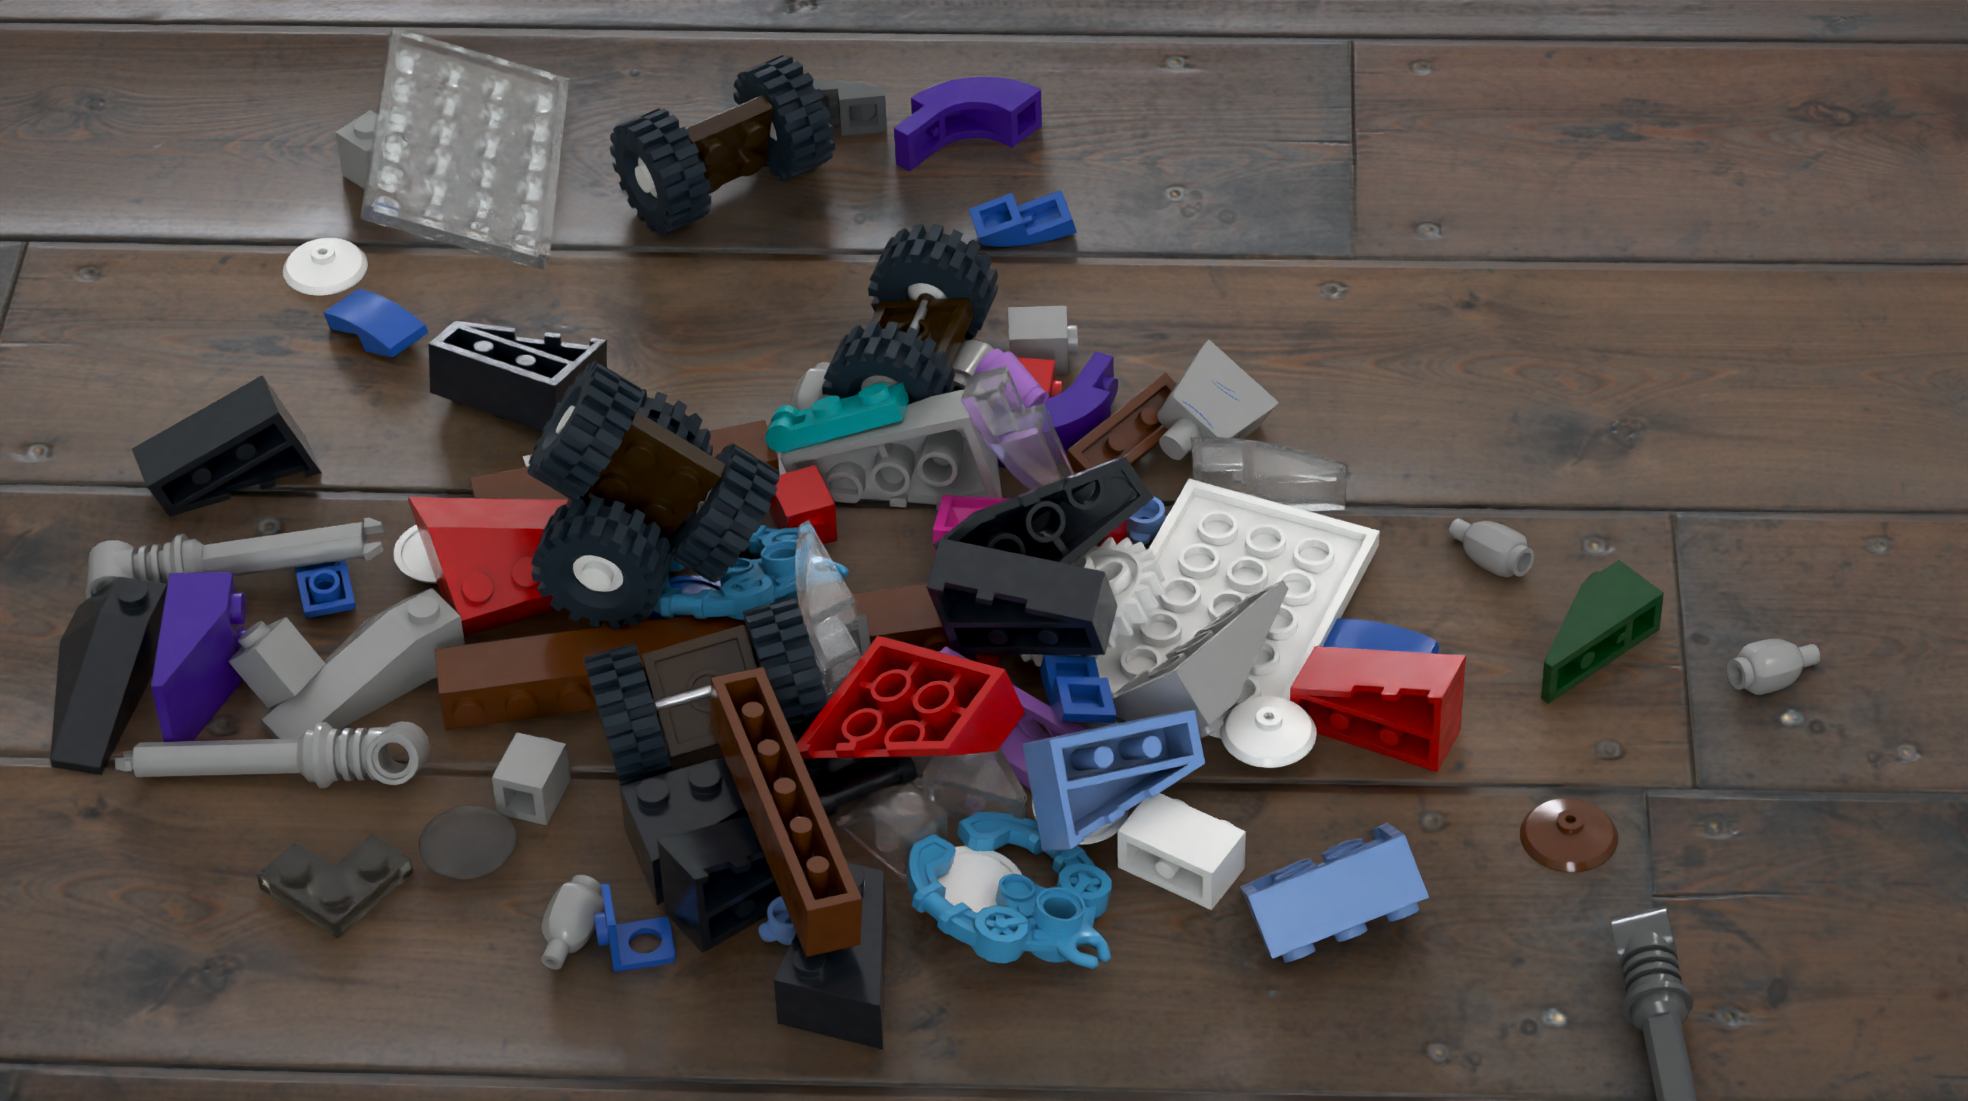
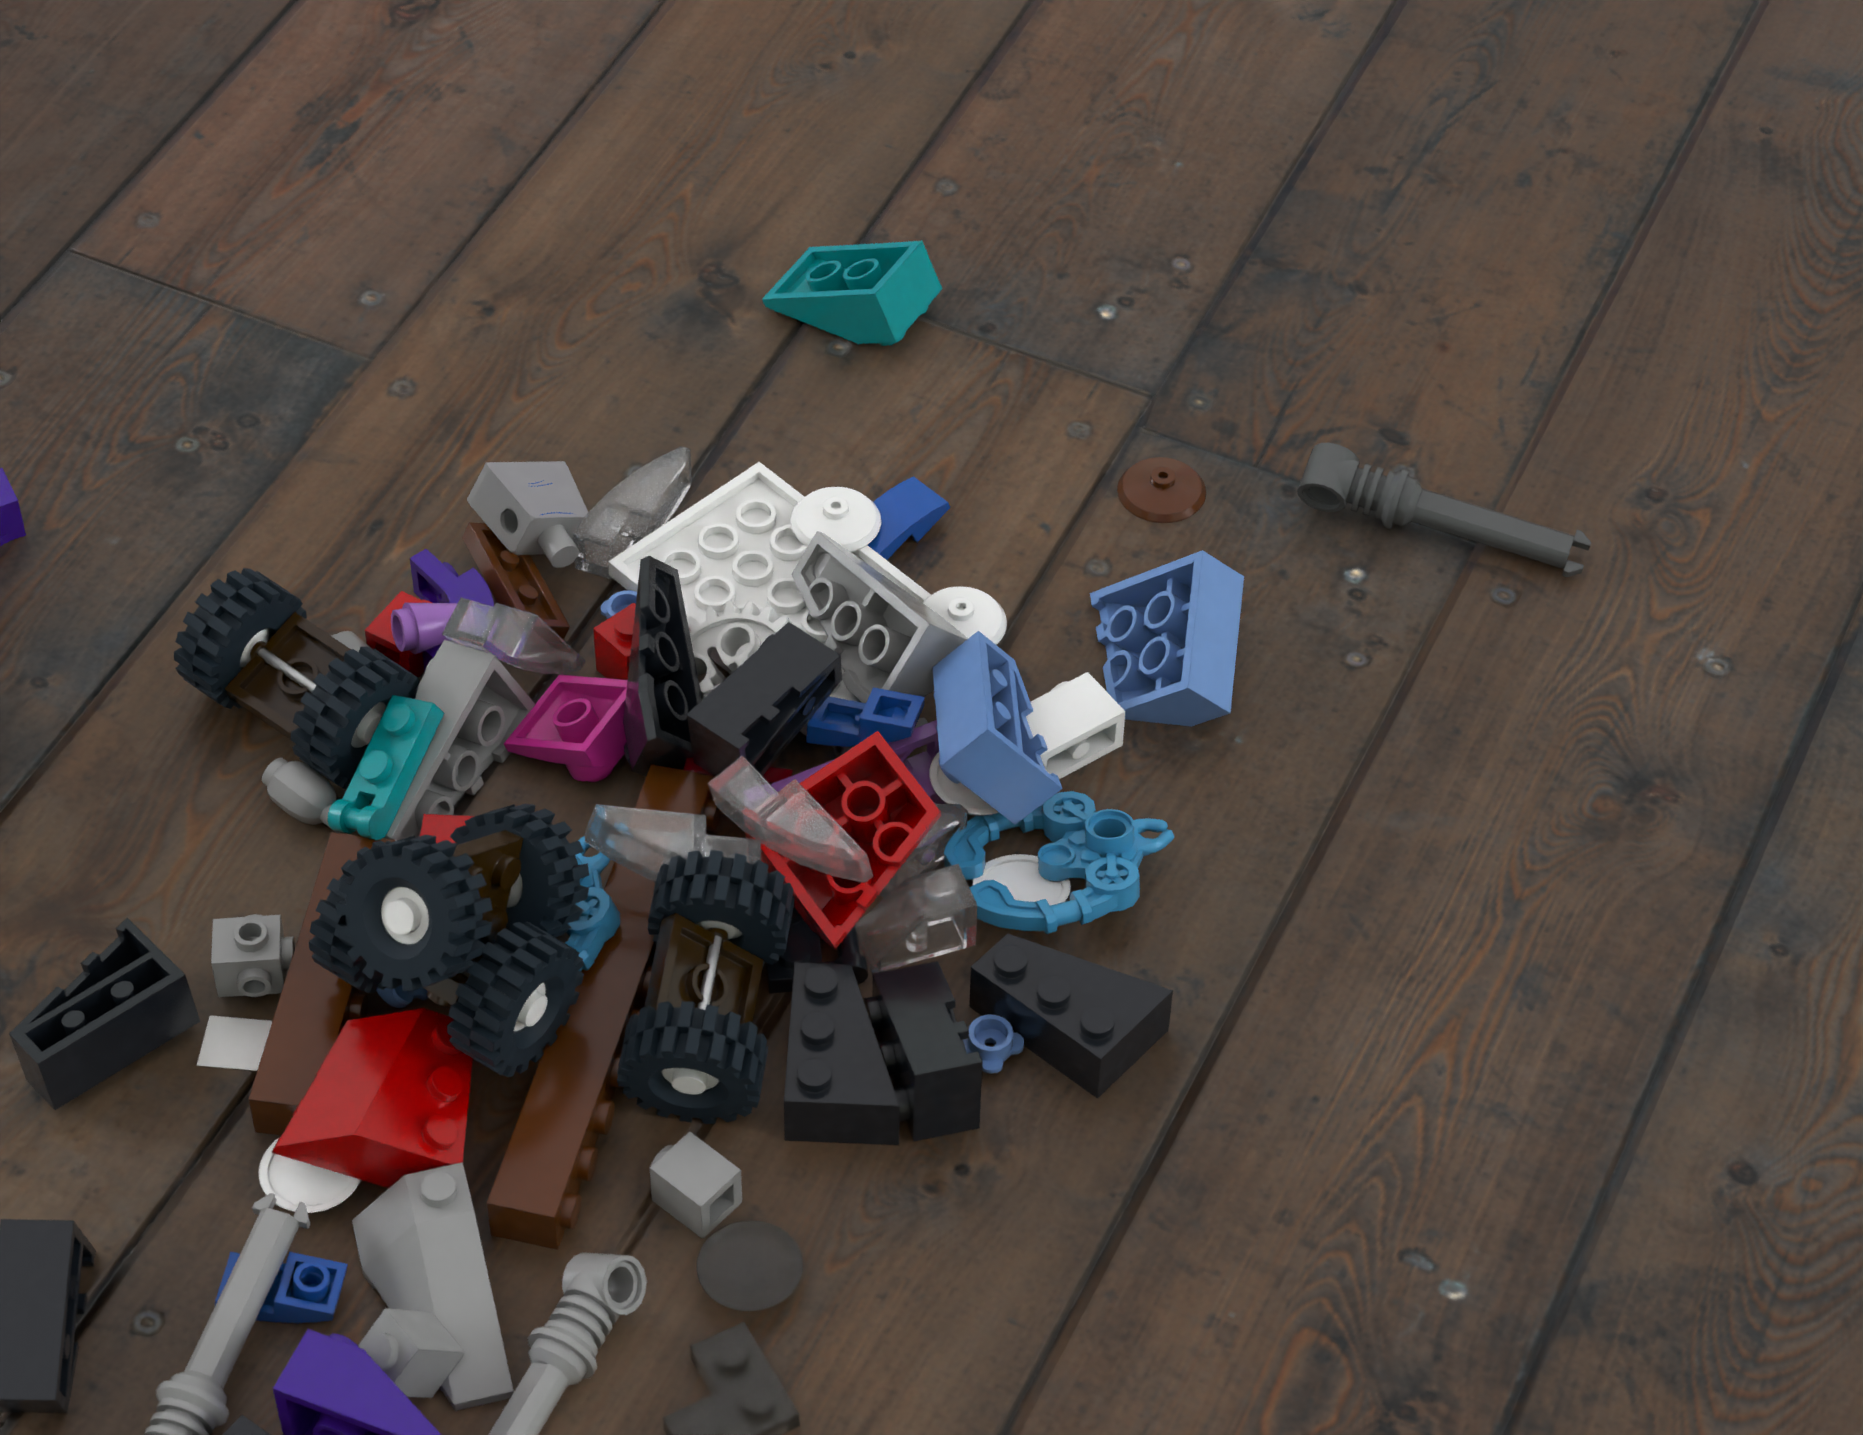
camera: 70 degrees left, 5 degrees up
(570, 919) = (902, 1210): light grey plant -> none
(620, 935) = (943, 1171): blue bracket -> none
(786, 812) = (939, 960): reddish brown brick -> none
(874, 652) = (788, 822): none -> clear slope
(1037, 221) = (152, 559): blue slope -> none
(1042, 334) = (343, 598): light grey brick -> none
(1339, 606) = (838, 513): none -> white piece
(1385, 700) = (979, 525): red wedge -> none
(1494, 547) = (814, 402): light grey plant -> none
(1605, 620) = (955, 374): dark green slope -> none
(1660, 523) = (858, 290): none -> teal slope
(1770, 665) = (1057, 295): light grey plant -> none

